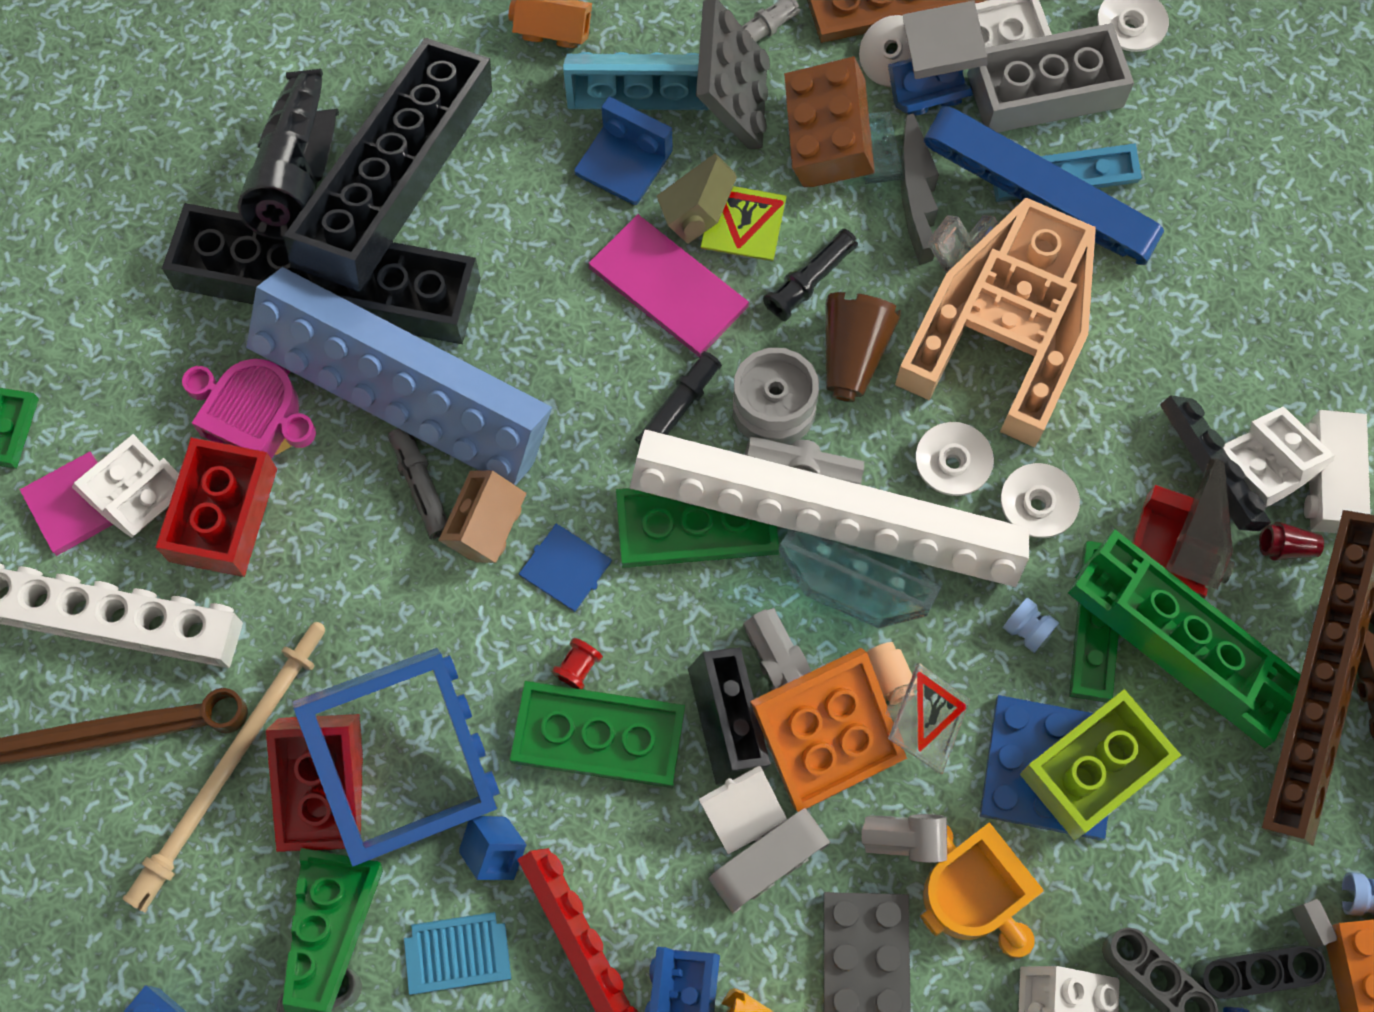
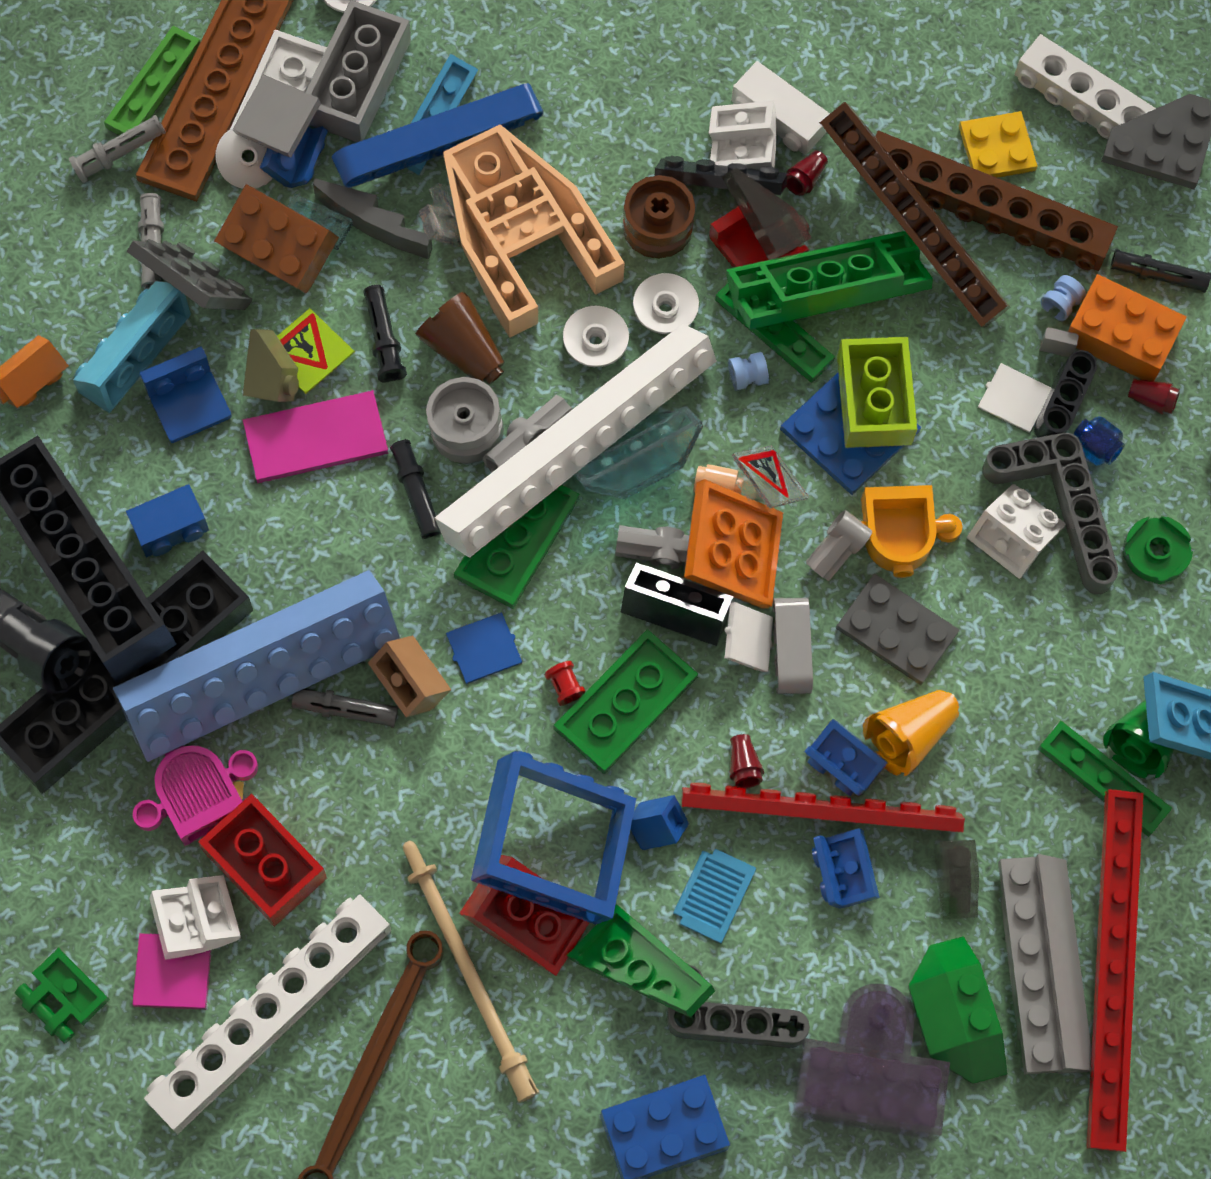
camera: 60 degrees left, 0 degrees up
(491, 216) = (168, 521): none -> blue brick
(611, 894) = (745, 765): none -> dark red cone
(1124, 432) = (658, 216): none -> reddish brown wheel
(1217, 917) = (1014, 397): none -> white piece

